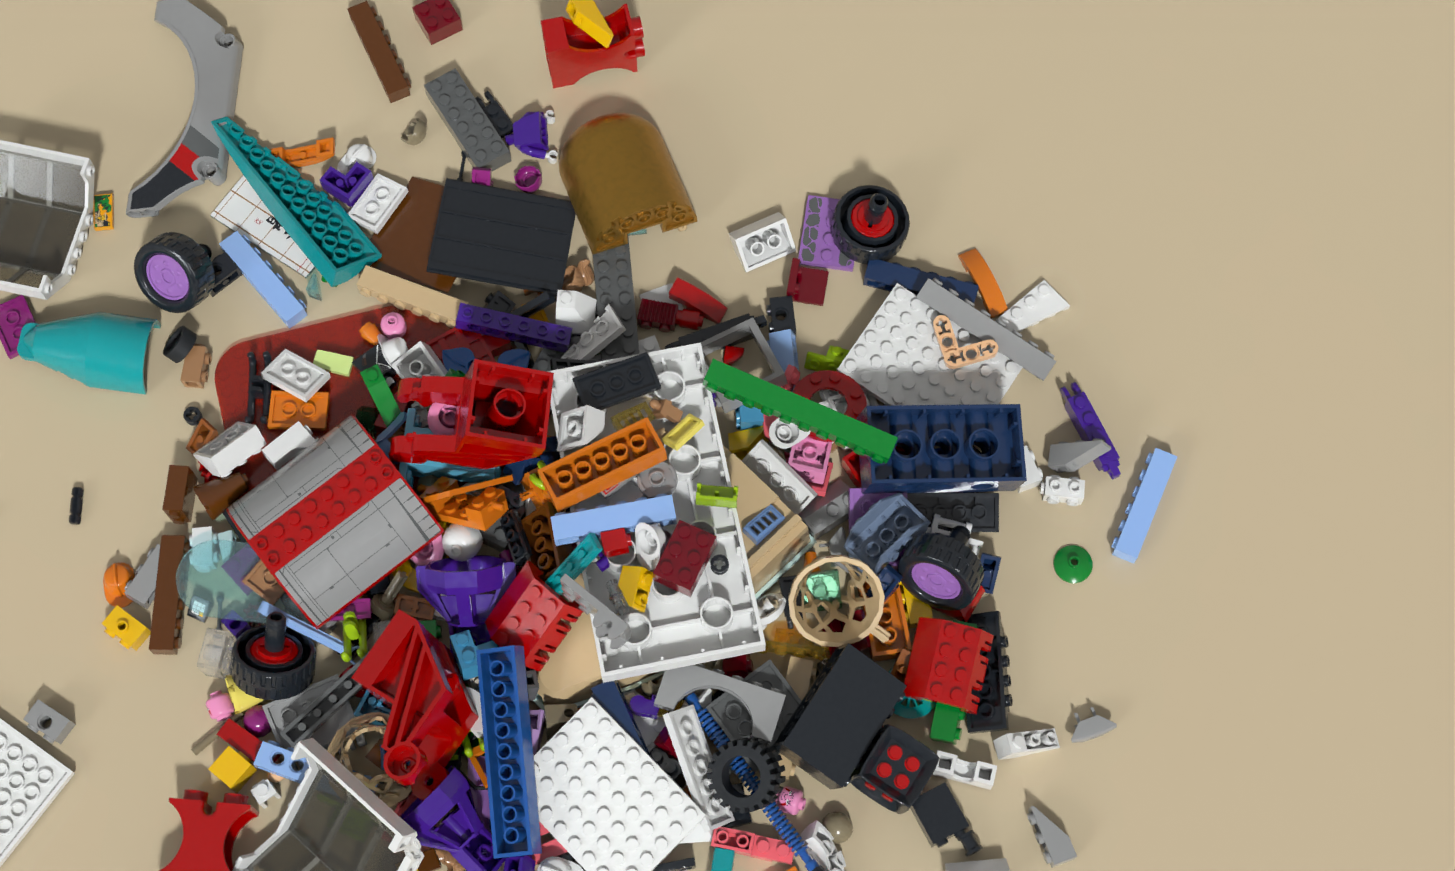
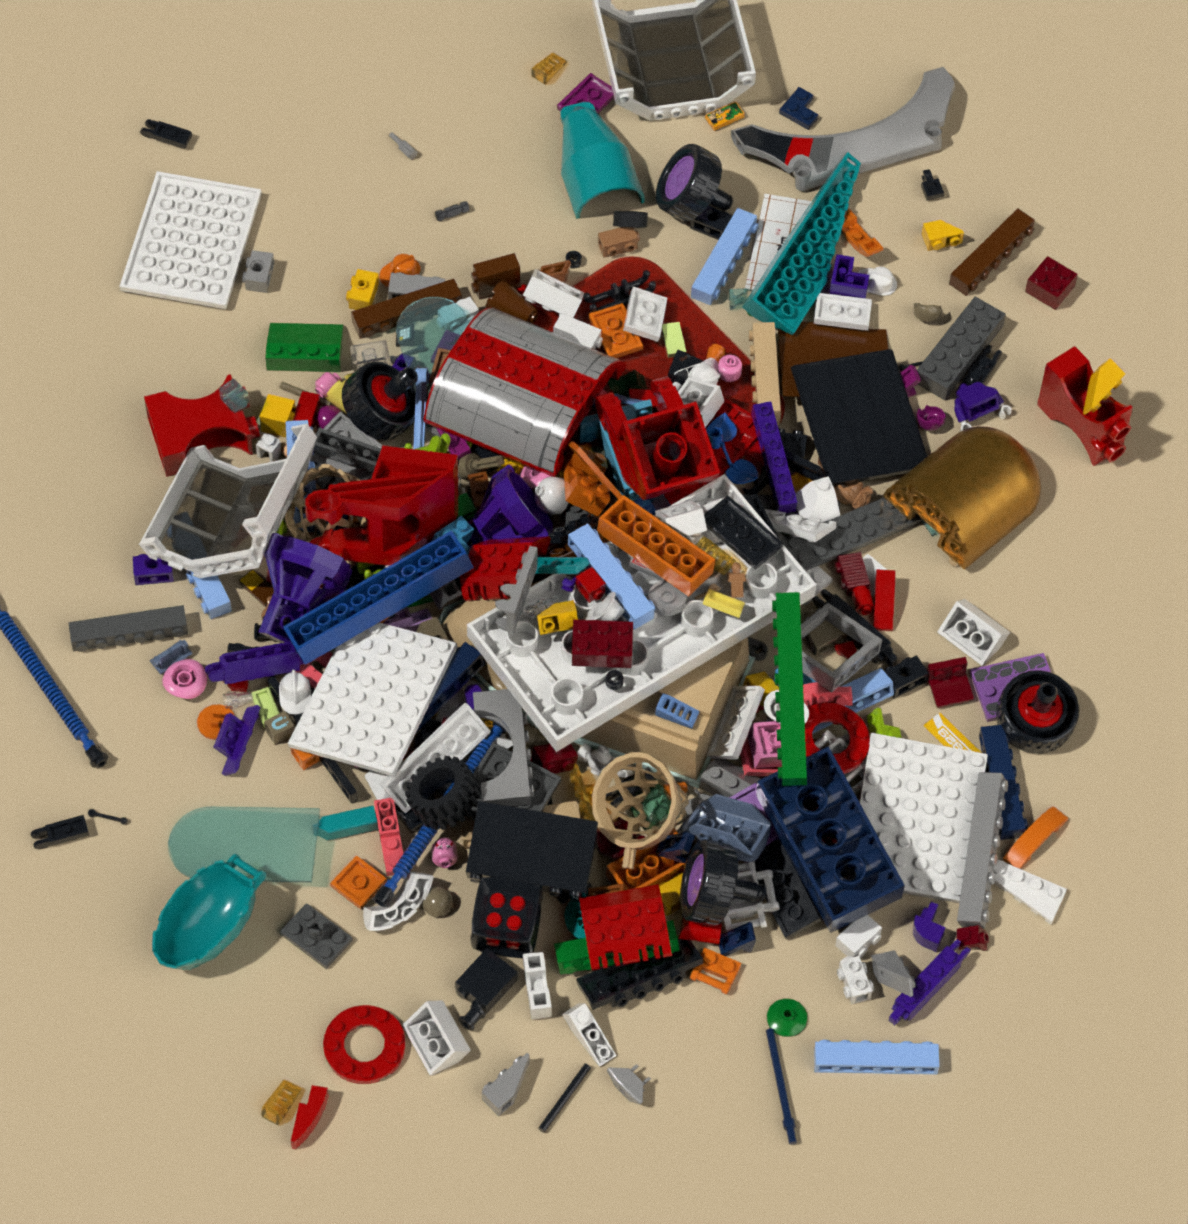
camera: 65 degrees right, 10 degrees down
(132, 148) = (796, 109): none -> dark blue plate
(161, 711) = (304, 347): none -> green slope
(201, 803) = (234, 395): none -> clear light blue brick
(282, 70) = (931, 187): none -> black plate
(337, 85) = (941, 234): none -> yellow slope
(381, 394) = (663, 367): green slope -> none
(716, 496) = (674, 648): lime hinge -> none
(857, 306) = (948, 734): none -> yellow sticker
(955, 351) = (943, 830): light nougat beam -> none
(1003, 599) = (719, 966): none -> orange plate
(1039, 411) = (926, 931): none -> dark purple brick
(1060, 376) = (972, 937): none -> dark red bracket
(1079, 791) = (564, 1098): none -> black bar
(1176, 605) = (788, 1122): none -> dark blue bar

